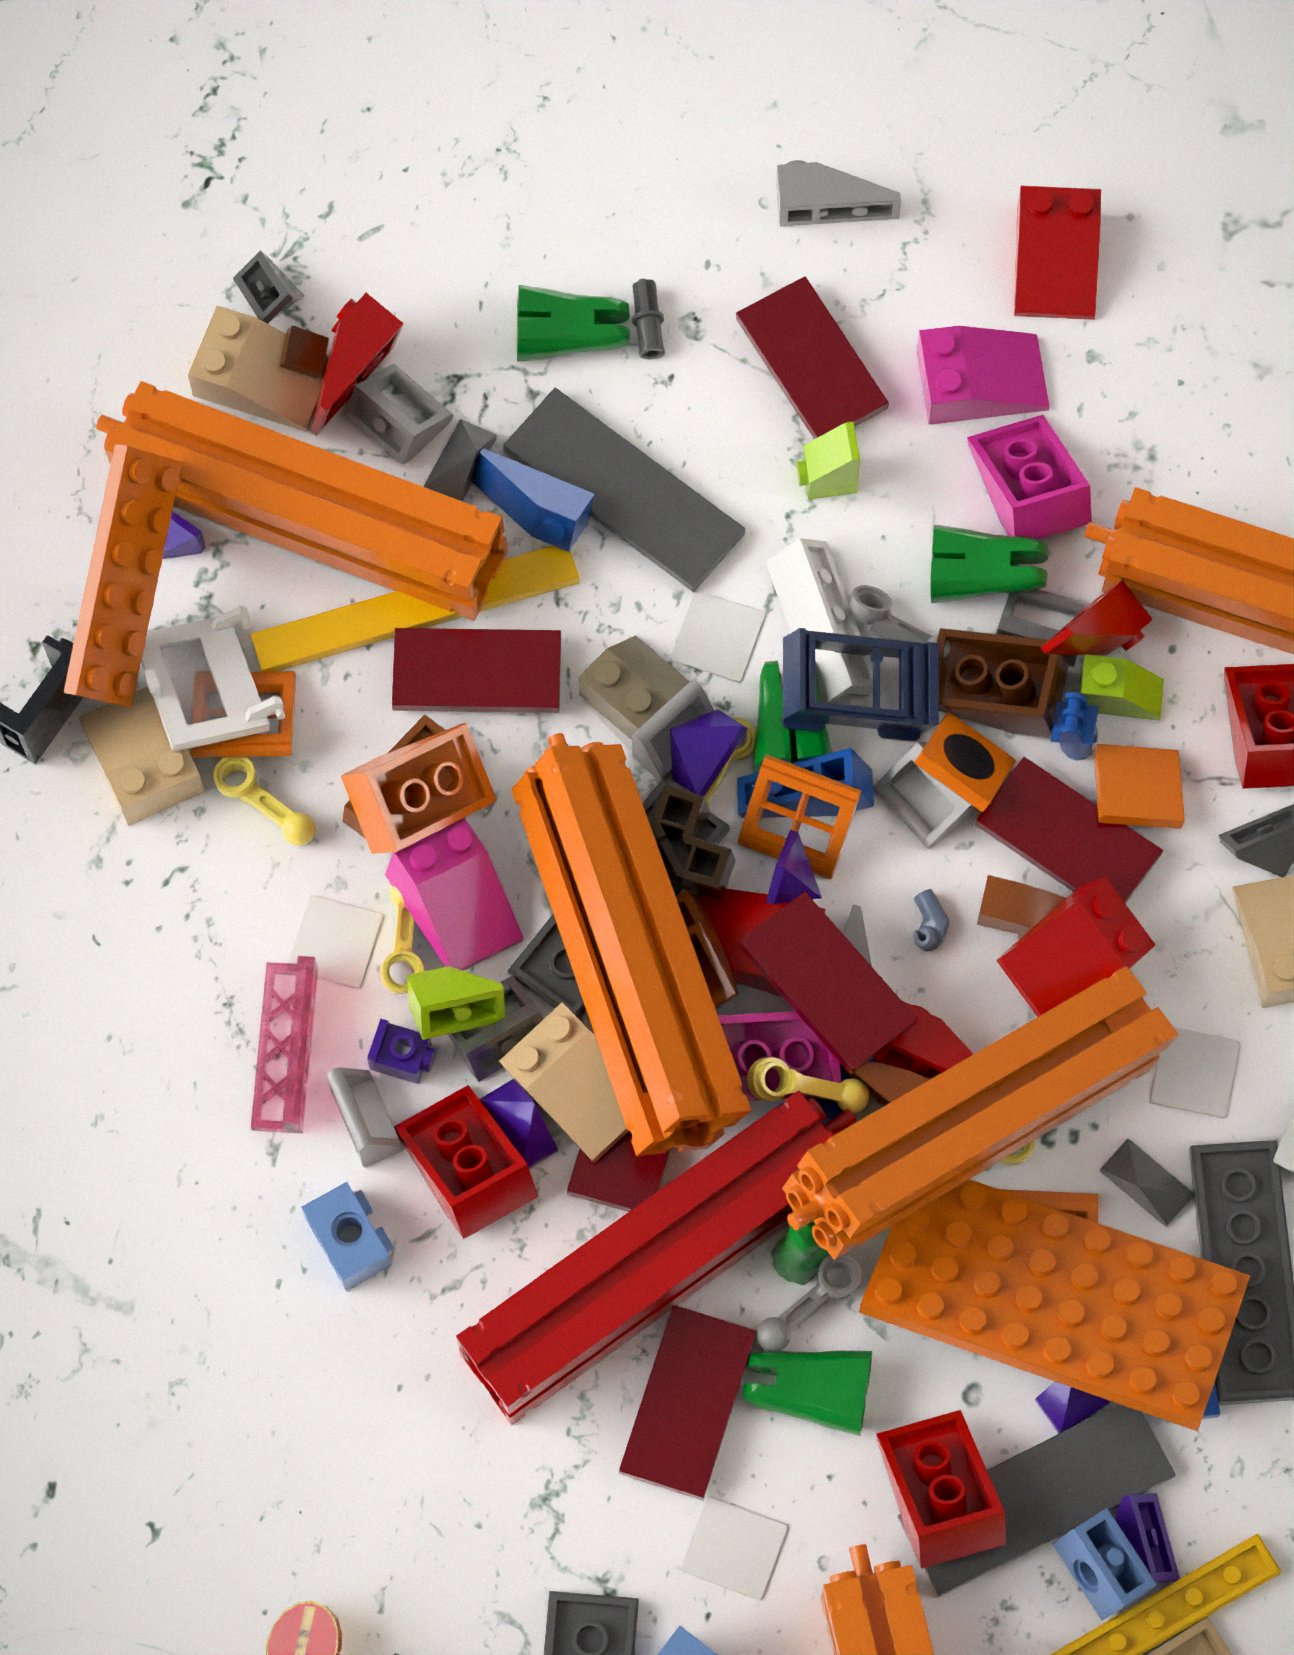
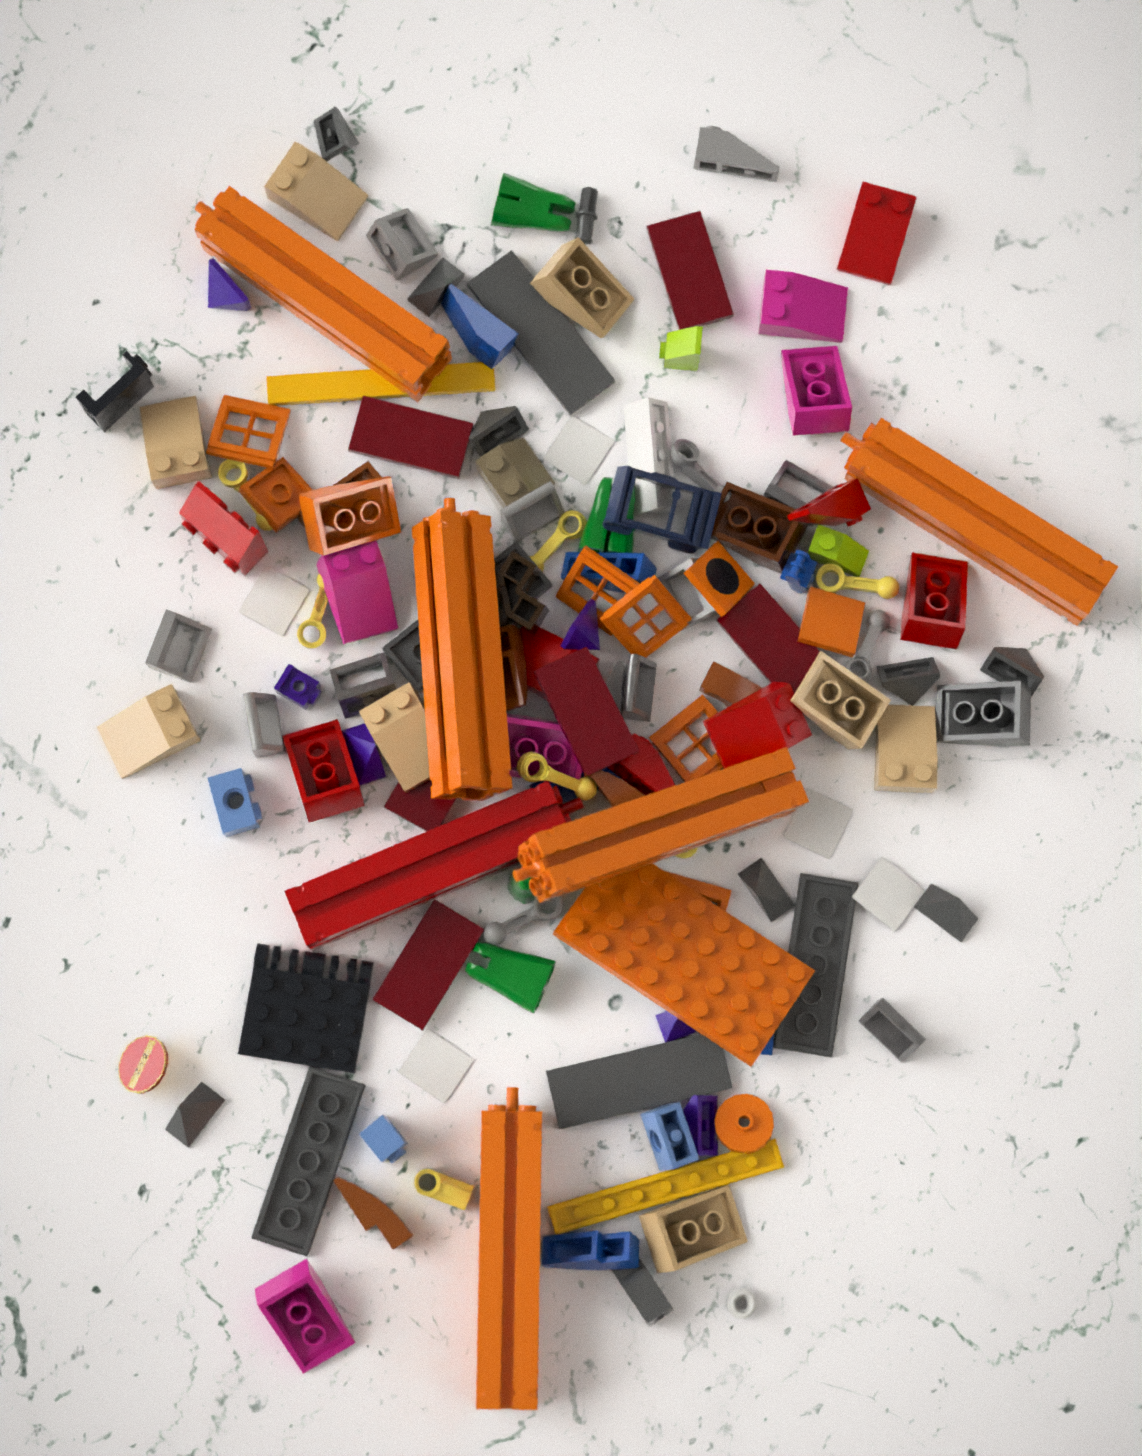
camera: 10 degrees right, 10 degrees up
(123, 576) = (185, 321): orange plate -> none
(185, 1061) = (164, 639): none -> light grey tile
(198, 1164) = (148, 731): none -> tan slope
(205, 682) = (226, 404): white piece -> none
(241, 854) = (222, 530): none -> wedge
(298, 1041) = (232, 668): clear pink fence -> none
(304, 351) = (347, 186): reddish brown tile -> none
(304, 790) = (276, 493): none -> orange tile
(360, 344) = (384, 192): red slope -> none
(453, 1001) = (339, 663): lime slope -> none
(525, 1518) = (303, 1014): none -> black hinge
(595, 629) = (496, 428): none -> dark grey slope
(668, 414) = (582, 288): none -> tan slope
(702, 749) = (546, 528): dark purple slope -> none
(853, 866) = (665, 601): none -> orange piece
(890, 938) = (639, 688): none -> flat silver tile
(934, 924) = (671, 683): sand blue arm -> none
(942, 1489) = (577, 1062): red slope -> none
(960, 978) = (676, 726): none -> orange piece
(983, 564) = (767, 443): green piece -> none
(1183, 890) = (840, 702): none -> tan slope
(1201, 1542) = (740, 1138): none -> orange plate
(1202, 722) = (886, 587): none -> light yellow piece
(1203, 774) = (877, 622): none -> light grey piece

